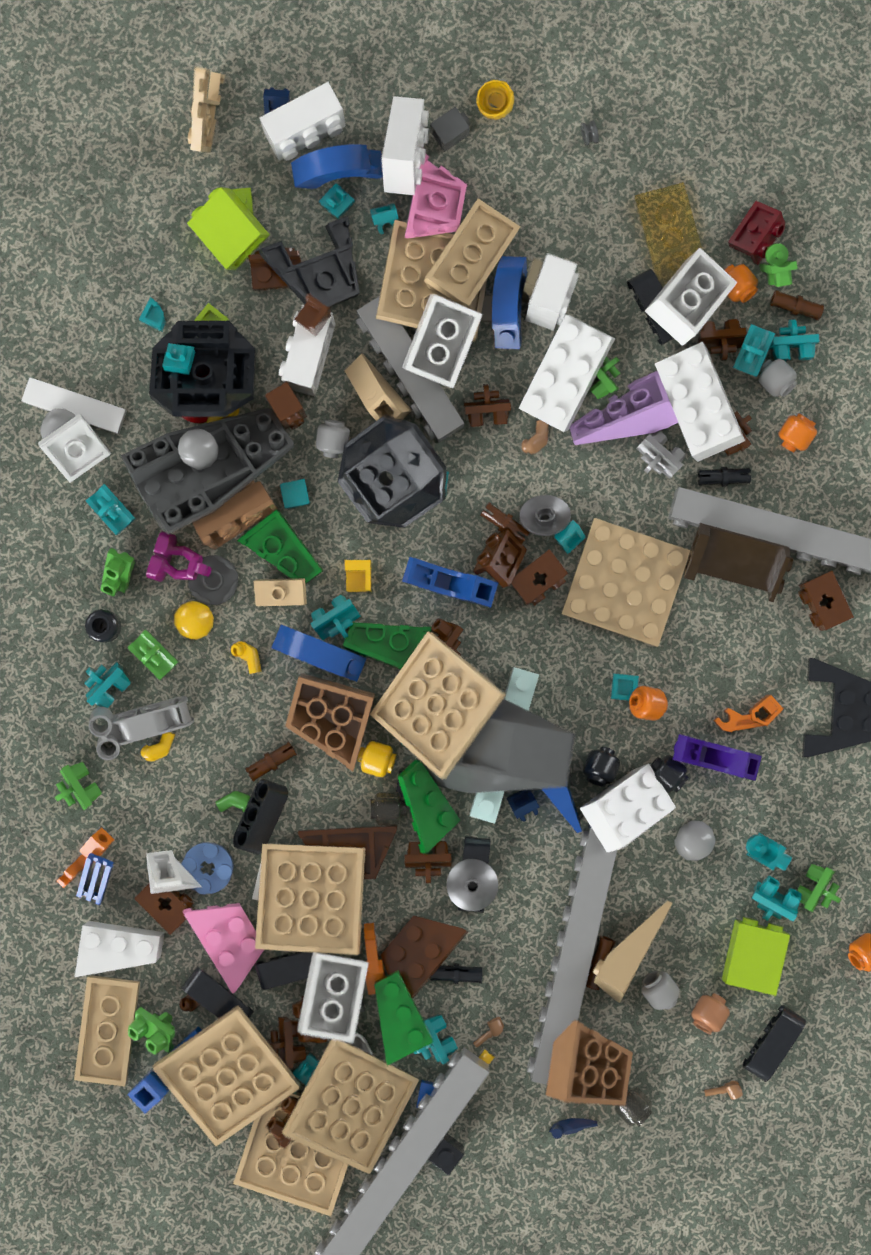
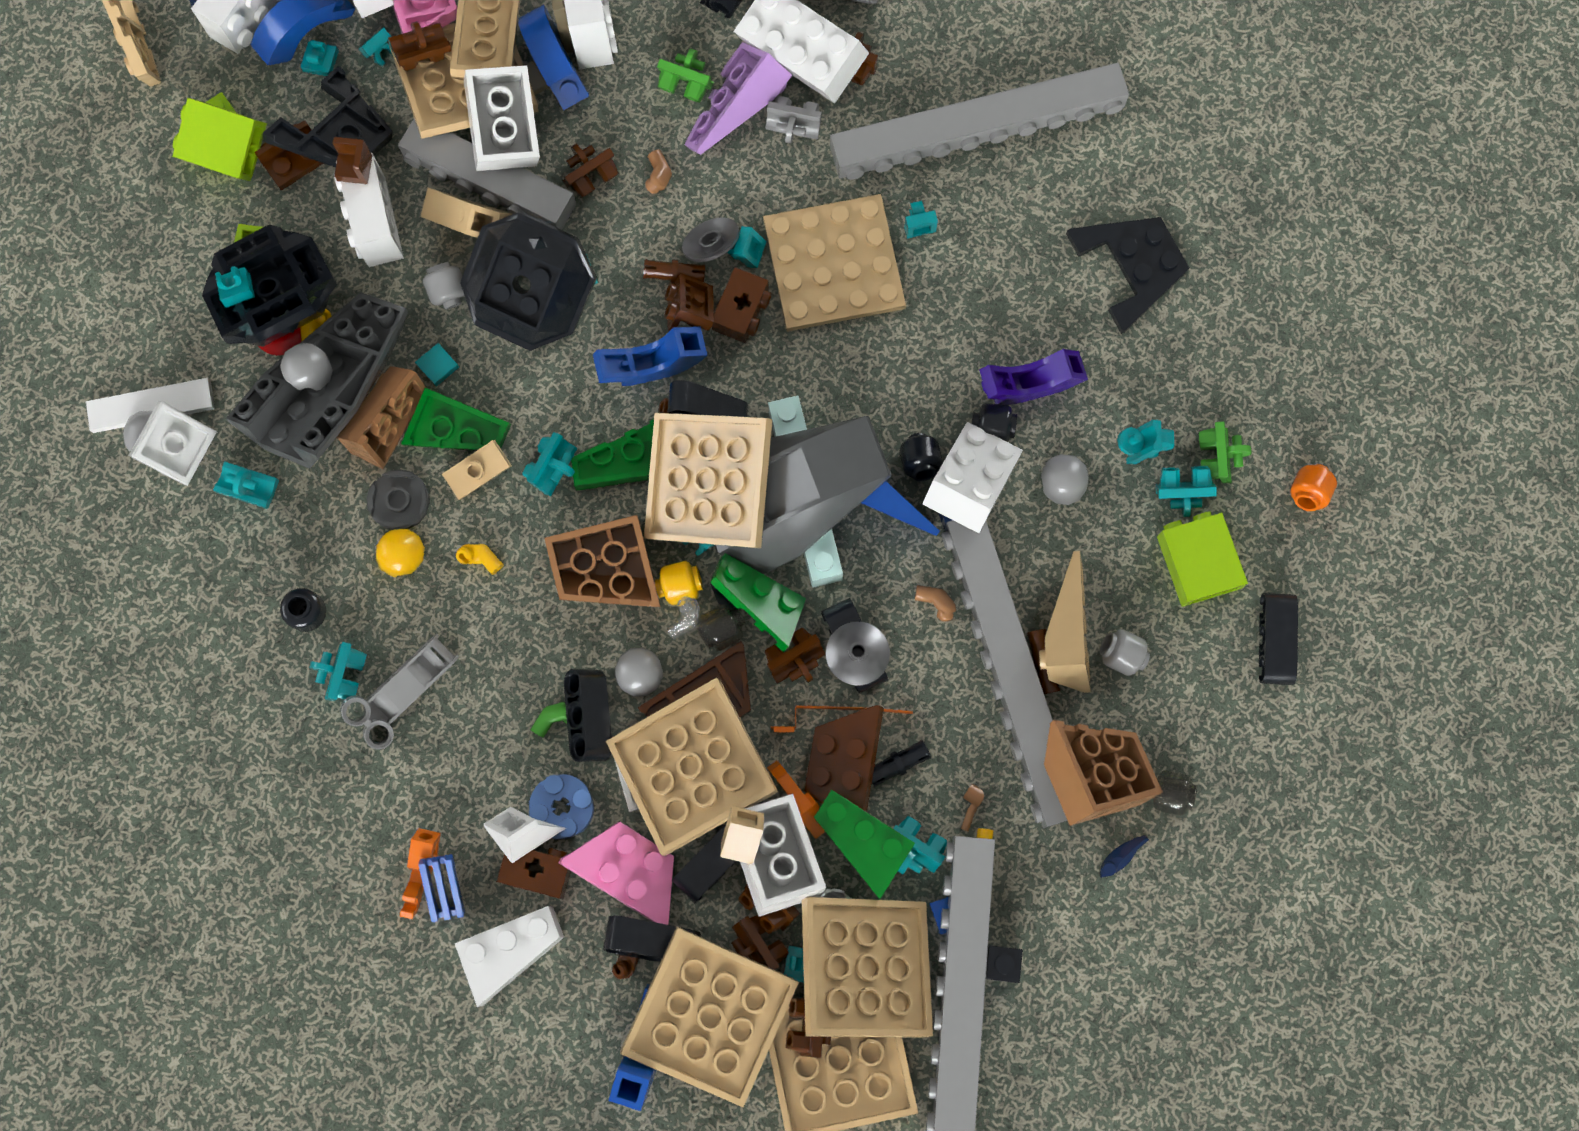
camera: 30 degrees left, 10 degrees down
(72, 776) = (365, 805): bright green hips -> none
(104, 1037) = (548, 1053): tan plate -> none
(117, 572) = (288, 544): bright green hips -> none
(153, 315) = (187, 270): teal tile -> none
(153, 654) = (374, 609): bright green hips -> none
(155, 1028) = (601, 1016): bright green hips -> none
(158, 750) = (437, 710): yellow arm -> none
(160, 562) = (328, 492): magenta piece -> none
(271, 761) = (566, 652): reddish brown pin -> none
(286, 406) = (377, 275): reddish brown brick -> none
(313, 804) = (638, 672): none -> light grey hair
(315, 975) = (742, 835): none -> panel
(318, 653) = (552, 503): blue arch -> none
(358, 575) = (550, 407): yellow panel -> none
(367, 789) = (689, 617): none -> clear arm
(395, 907) = (790, 729): none -> orange piece
(413, 244) = (419, 45): none -> reddish brown hips
(469, 645) = (695, 399): none -> black beam
(523, 803) = (861, 541): dark blue tile -> none
(554, 876) = (940, 600): none -> medium nougat arm
(566, 373) = (649, 86): white brick -> none
(623, 686) = (896, 366): teal tile -> none
(648, 703) = (929, 364): orange head -> none
(706, 588) = (919, 221): none -> teal tile
(710, 1013) = (1192, 646): nougat head -> none
(724, 476) = (871, 105): black pin -> none
(732, 1088) = (1266, 714): medium nougat hand -> none
(738, 559) = (935, 172): dark brown panel -> none
(739, 722) = (1035, 333): orange piece -> none
(797, 433) = (918, 23): orange head -> none
(835, 610) = (1042, 152): reddish brown brick -> none

